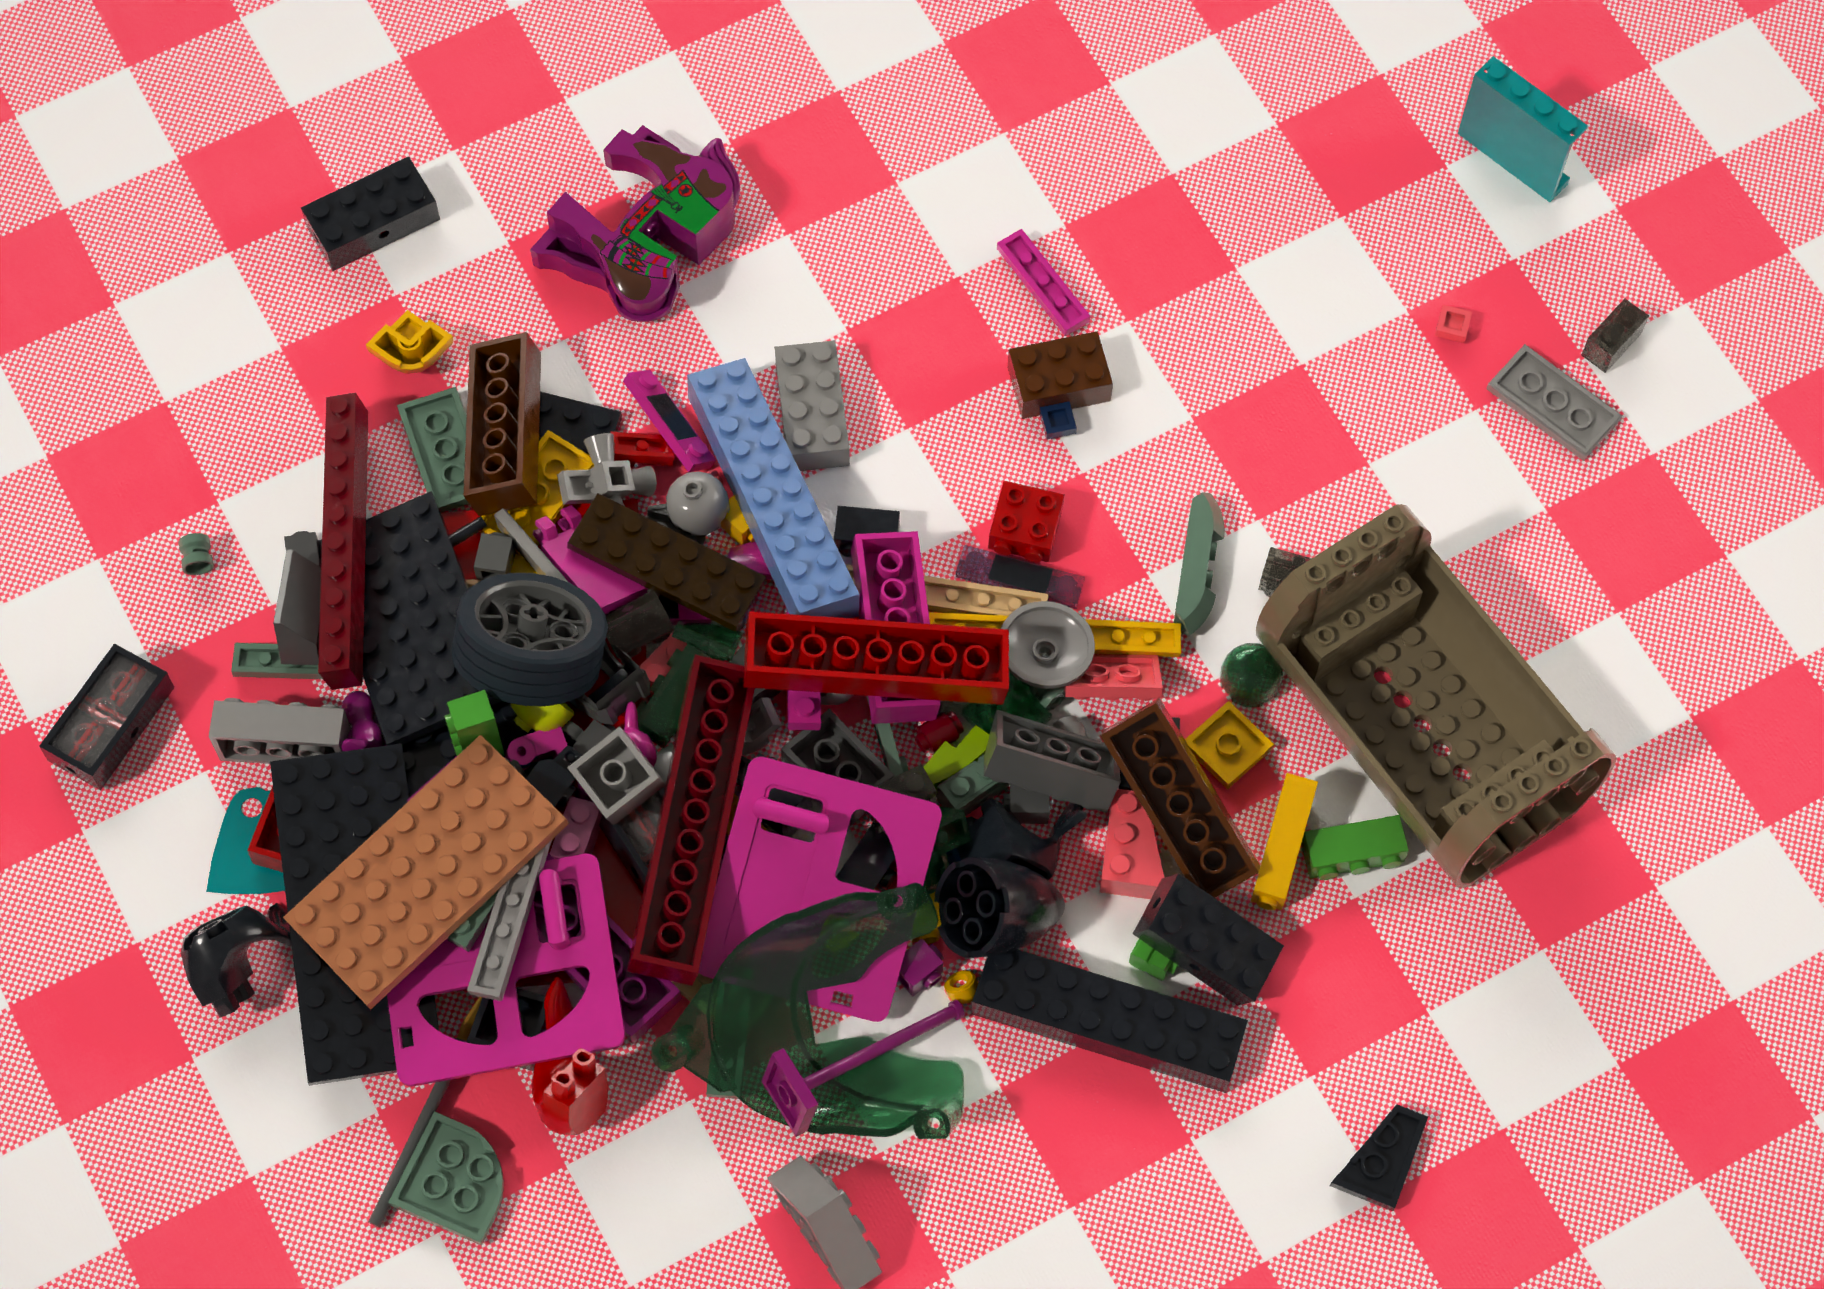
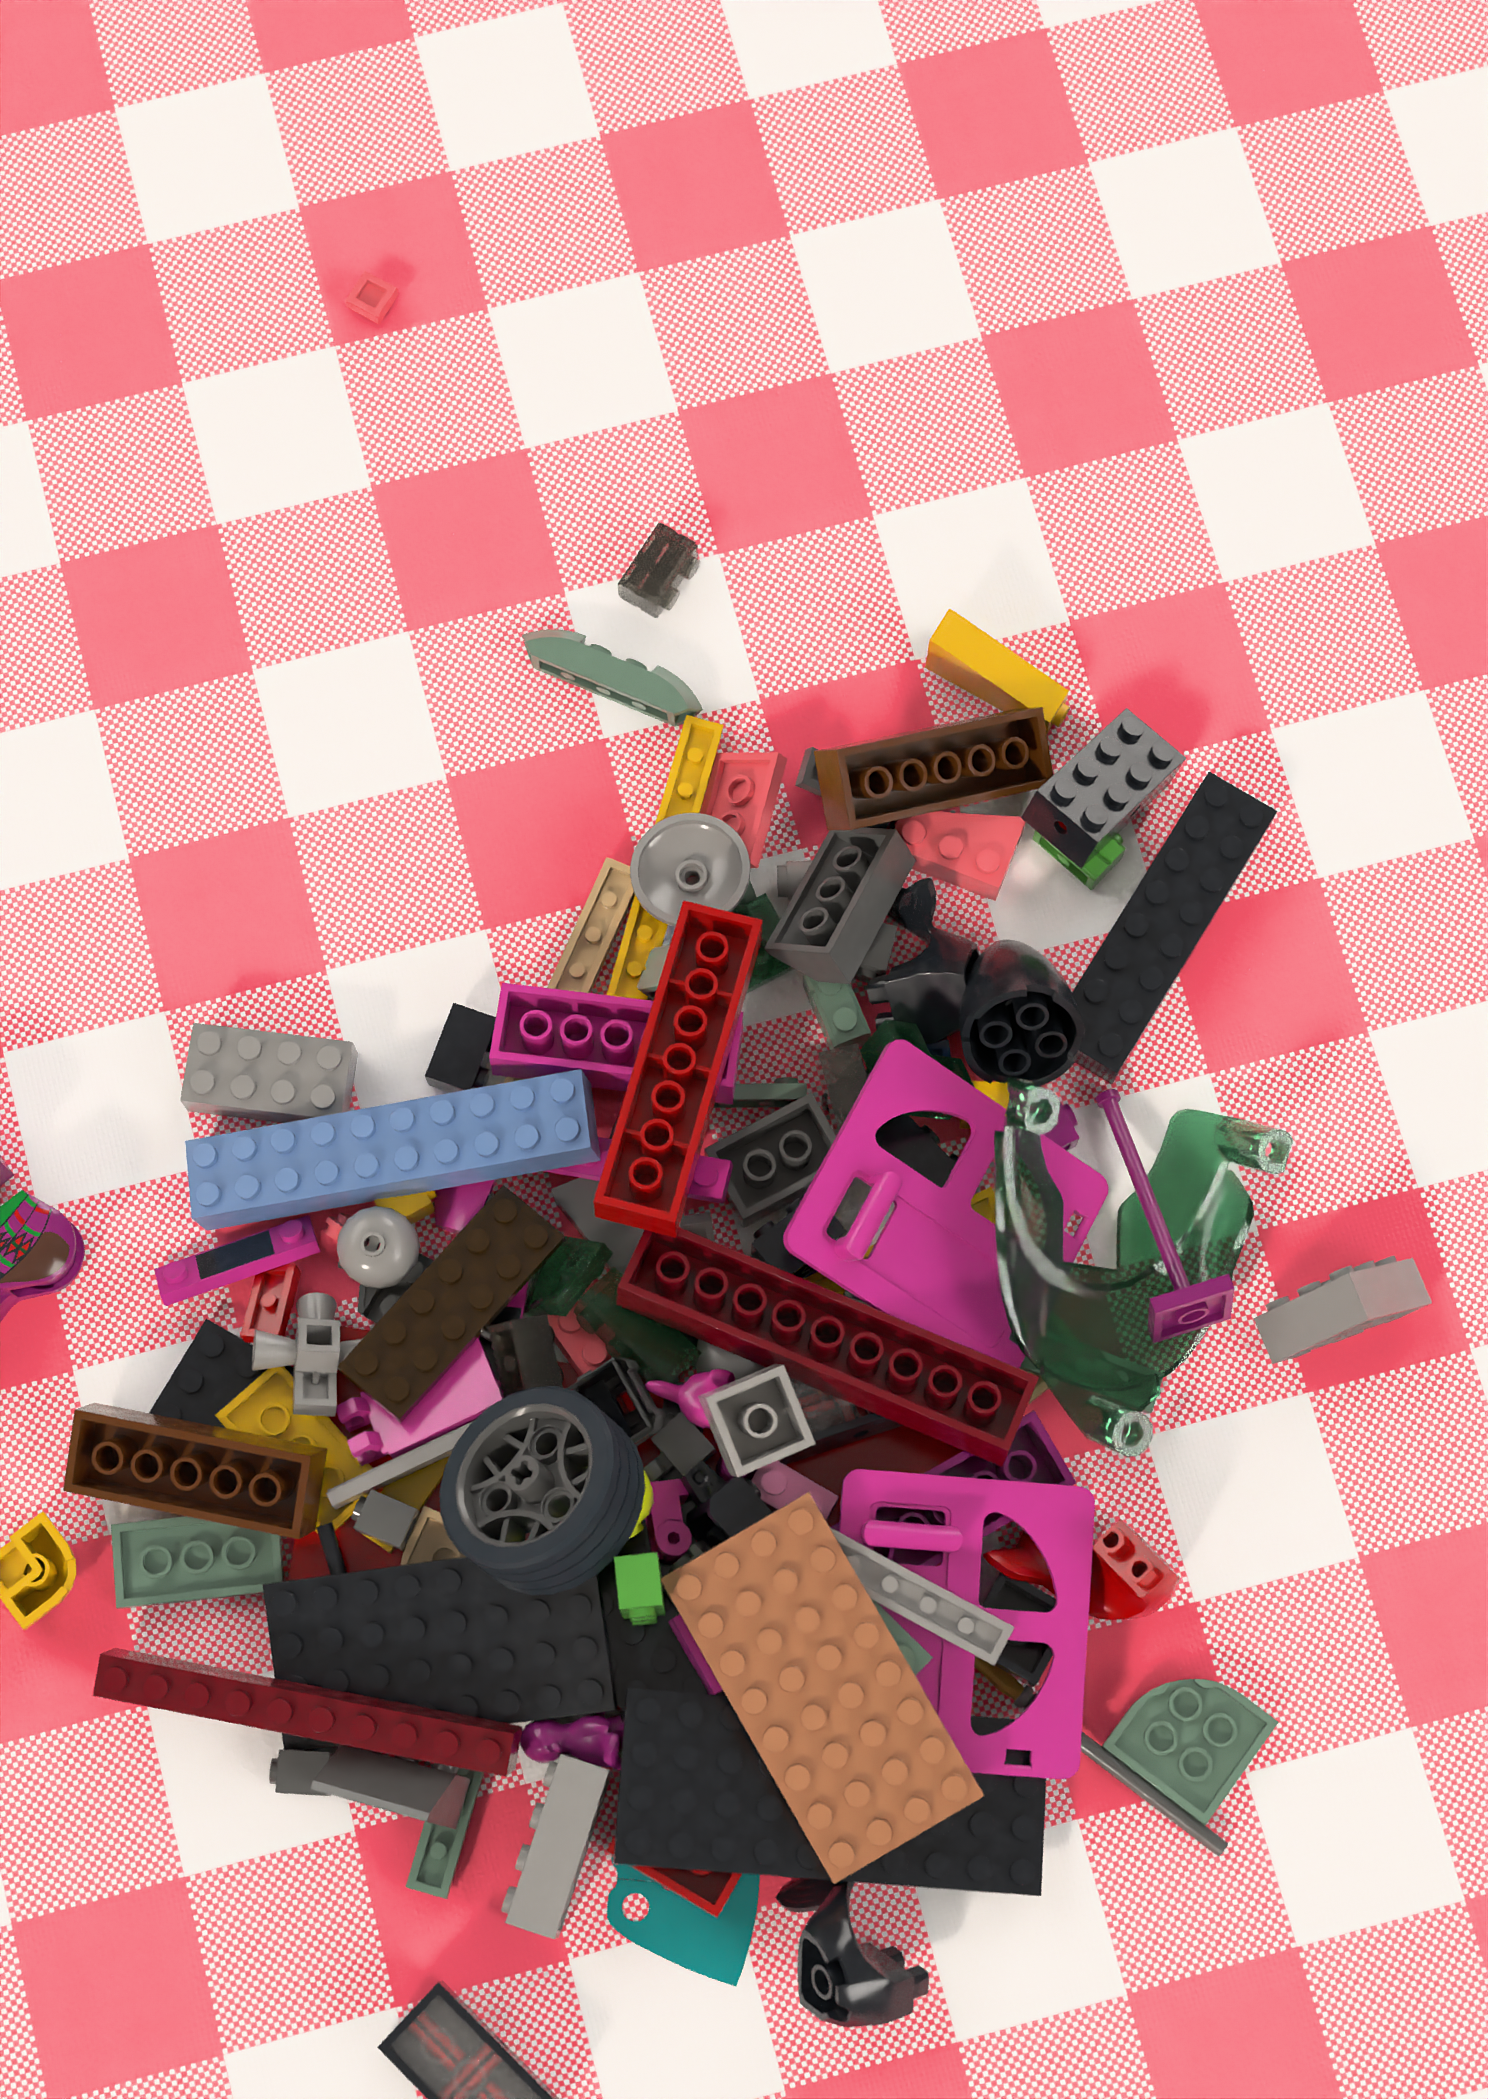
camera: 75 degrees left, 10 degrees up
(196, 554) = (260, 1917): sand green wheel -> none
(935, 732) = (759, 1033): dark red brick -> none
(951, 760) = (800, 1024): lime slope -> none
(964, 993) = (1090, 1082): yellow piece -> none
(1009, 572) = (568, 886): plate -> none
(1026, 522) = (505, 857): red brick -> none
(1043, 282) = (172, 754): dark pink plate -> none
(1058, 420) = (372, 786): dark blue plate -> none
(1060, 373) = (312, 766): reddish brown brick -> none
(1228, 744) = (852, 703): yellow plate -> none
(1251, 675) = (768, 654): clear green cylinder -> none
(1354, 847) = (1017, 596): bright green brick -> none
(1383, 1161) = (1389, 675): black wing -> none
(1399, 610) = (970, 380): dark tan cylinder -> none
(1520, 128) = (150, 130): teal panel -> none
(1554, 402) = (505, 219): light grey tile -> none
(1615, 335) = (442, 123): clear smoke brick -> none

